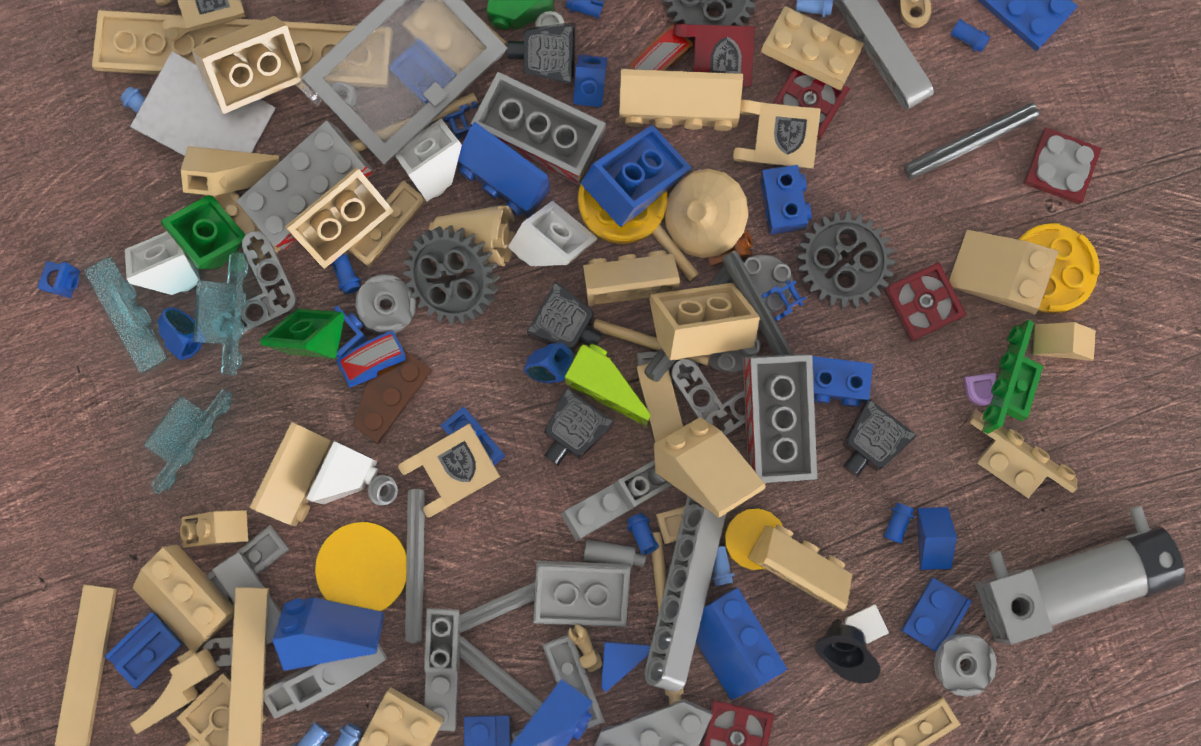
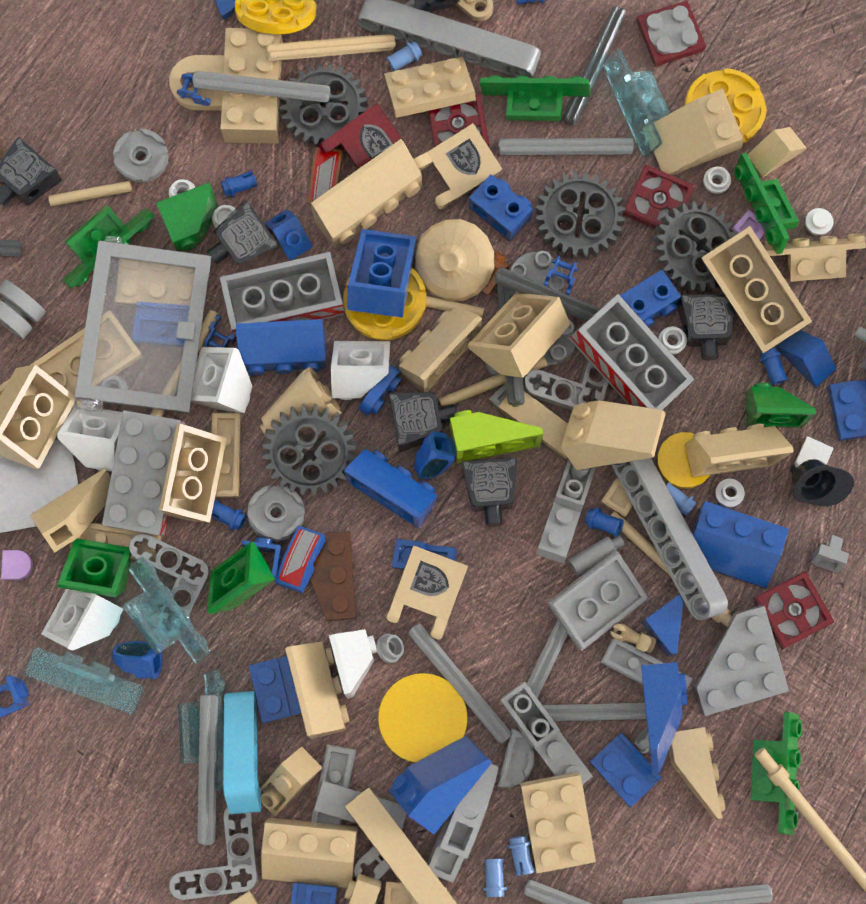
camera: 40 degrees left, 5 degrees down
(122, 557) = (235, 864): none -> light grey beam
(149, 177) = (15, 565): none -> lavender tile
(159, 466) = (207, 769): none -> light grey axle
(171, 497) = (240, 753): none -> medium azure beam
(261, 444) = (274, 689): none -> blue plate
(290, 119) = (92, 436): none -> white slope
(405, 668) = (517, 760): none -> light grey tile
(493, 360) = (391, 487): none -> blue slope
(540, 277) = (374, 399): none -> blue plate
(759, 600) = (725, 500): none -> white plate
(806, 719) = (830, 555): none -> light grey tile
(839, 423) = (676, 333): none -> white plate
(867, 558) = (776, 407): none -> green slope
(886, 191) = (565, 146): none -> light grey axle
(894, 129) = (535, 97): none -> green bracket
(936, 446) = (756, 289): none -> tan slope
(946, 362) = (683, 265): none -> dark grey gear
(983, 201) = (638, 99): none -> clear light blue bracket
(998, 321) = (720, 173): none -> white plate
(1047, 432) = (819, 221): none -> white plate

